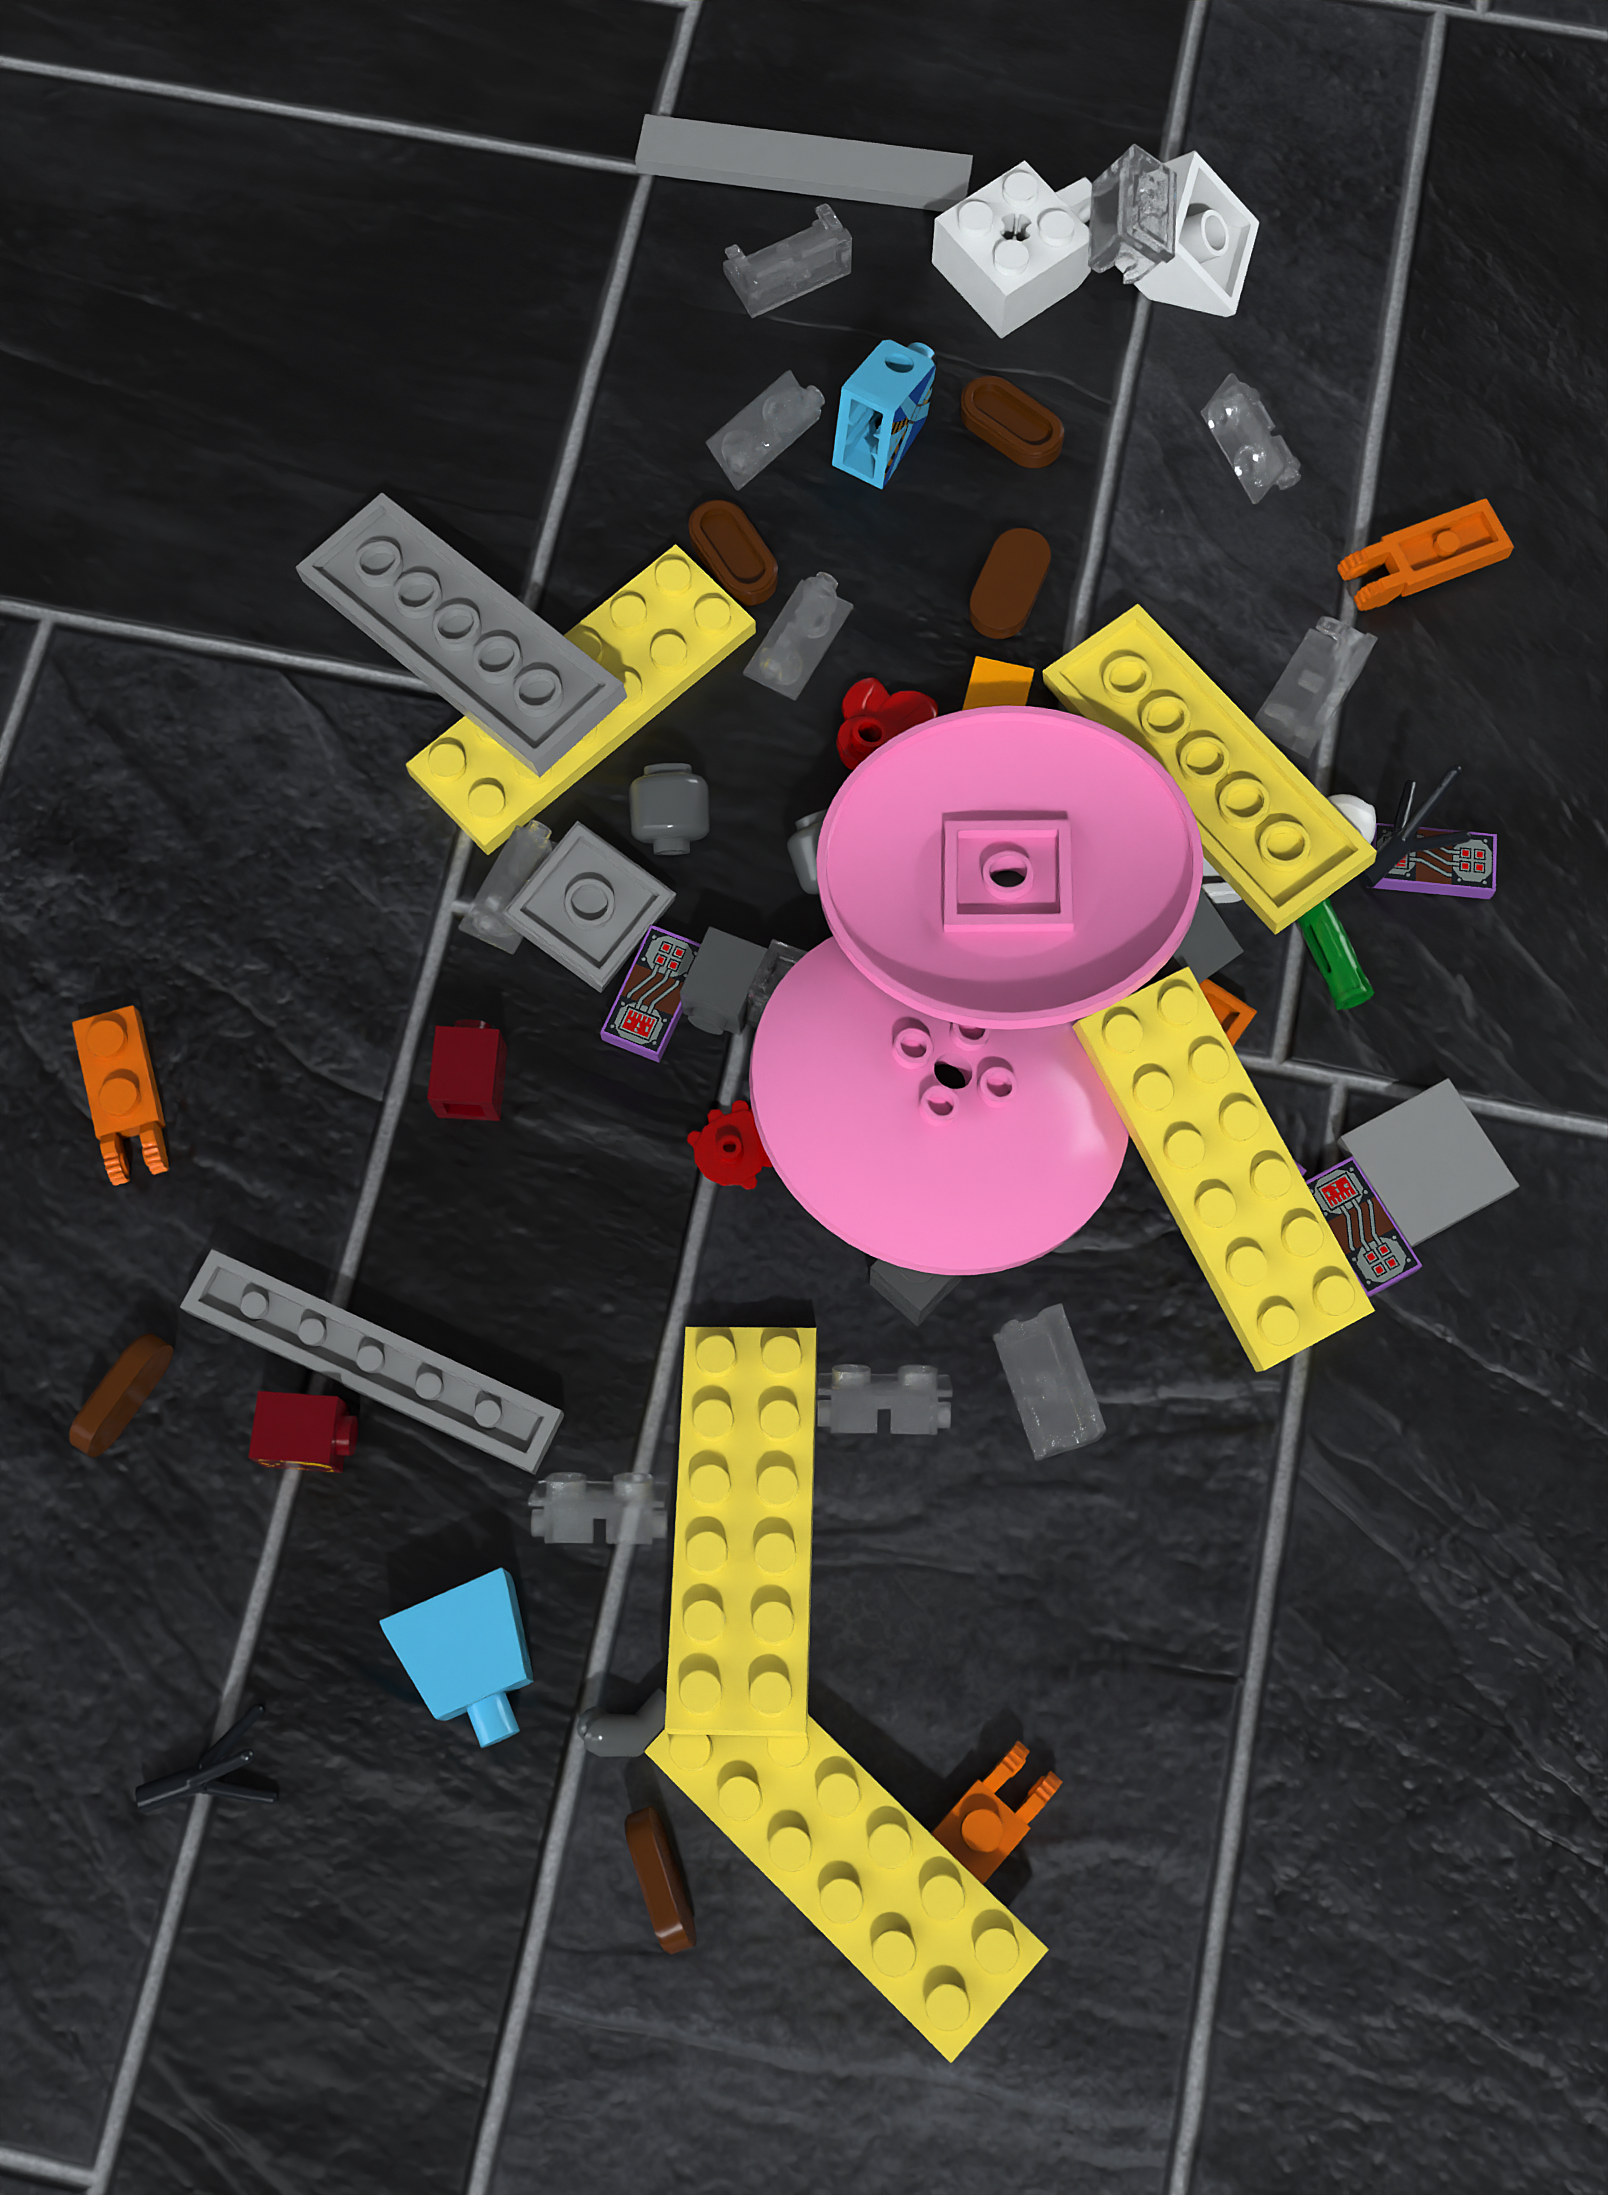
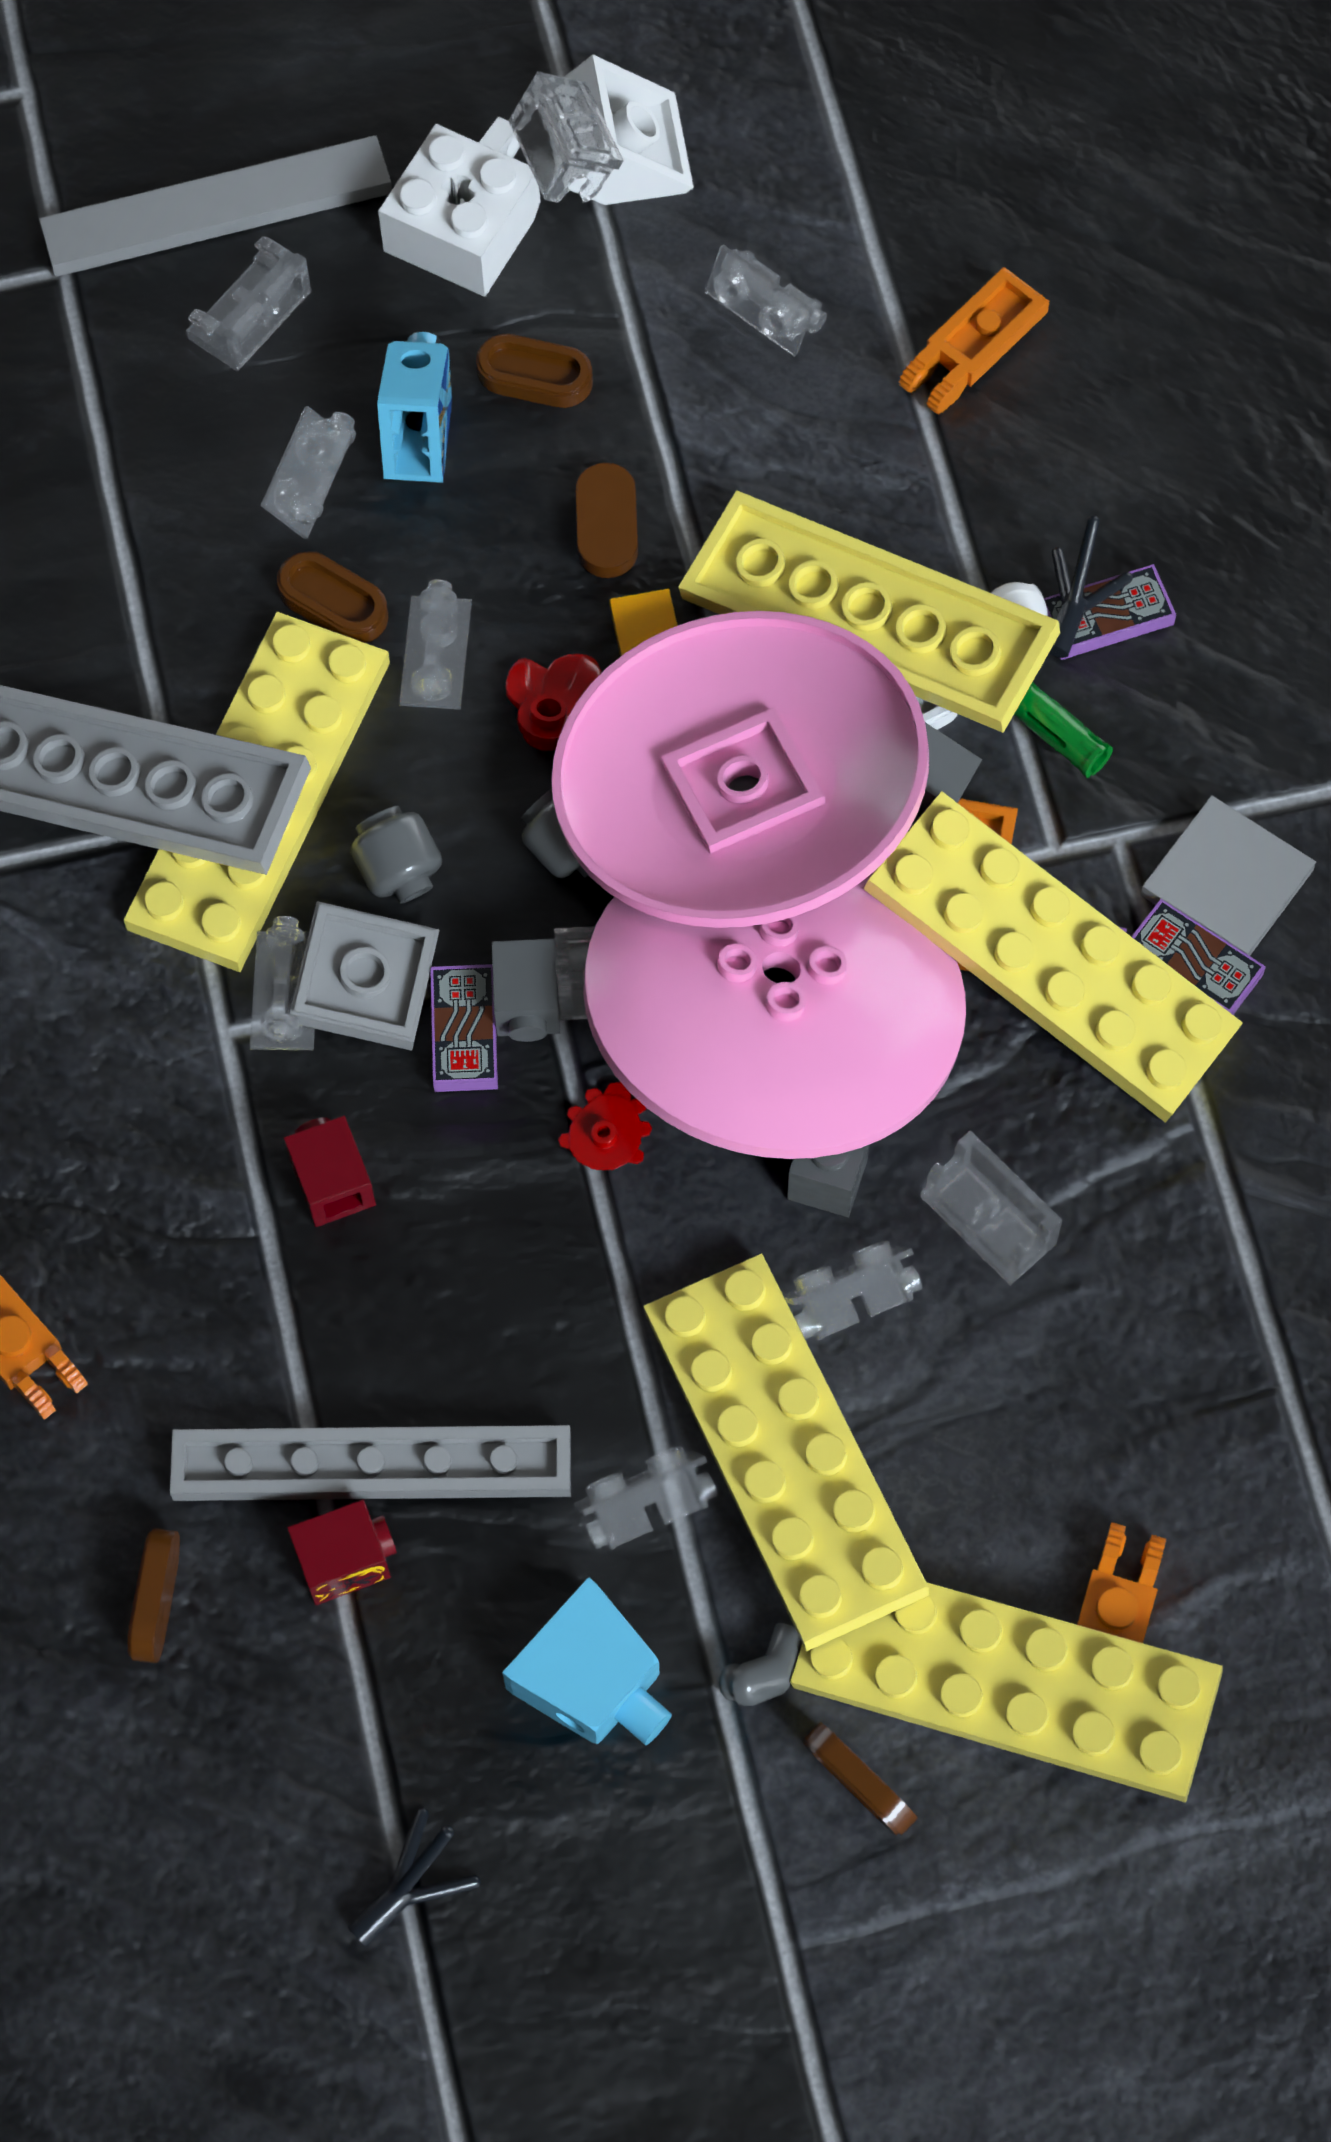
camera: 25 degrees left, 5 degrees down
(1314, 685) = (929, 498): clear hinge -> none

